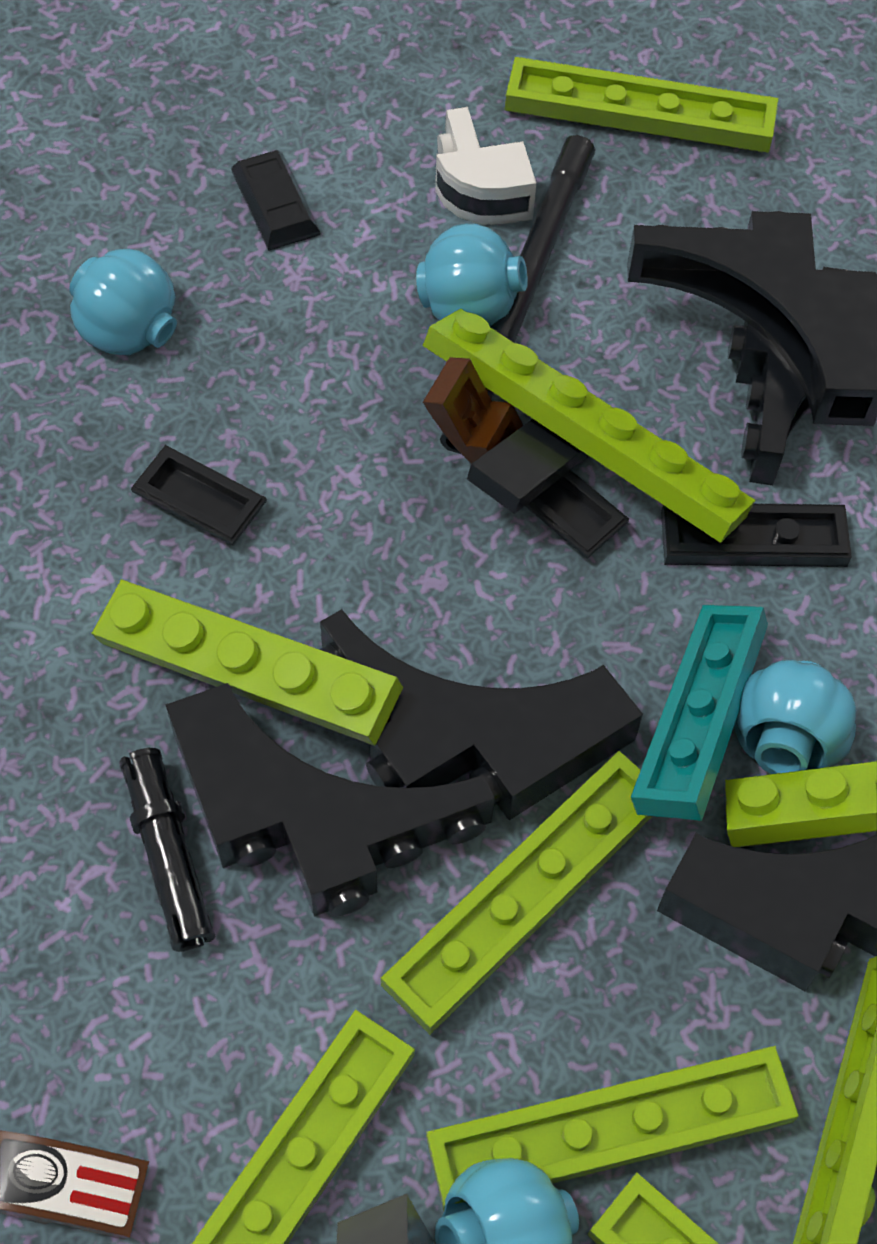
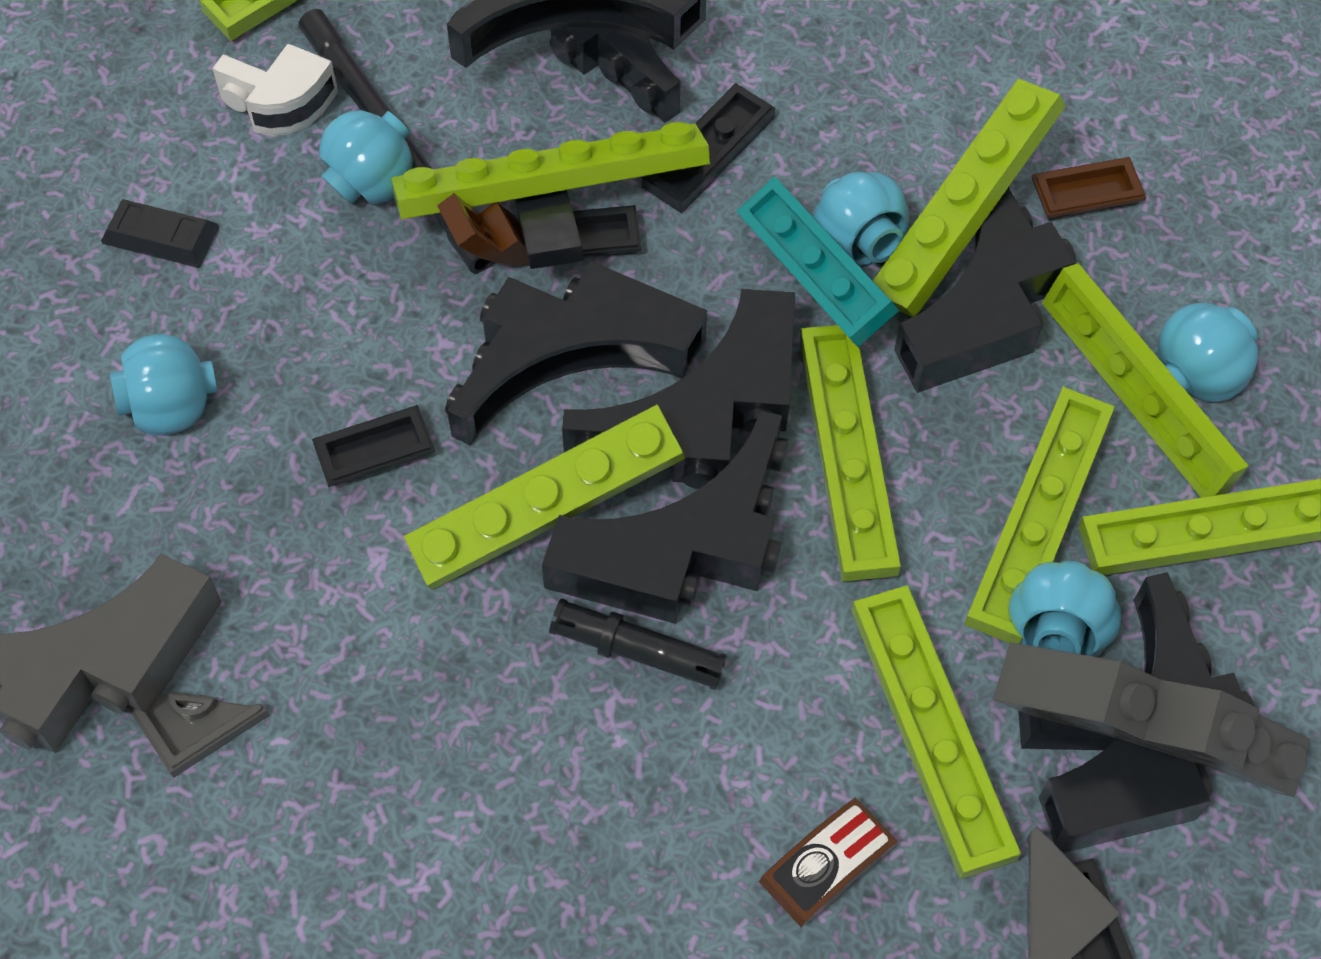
camera: 50 degrees left, 0 degrees up
(409, 539) = (597, 325): none -> black arch

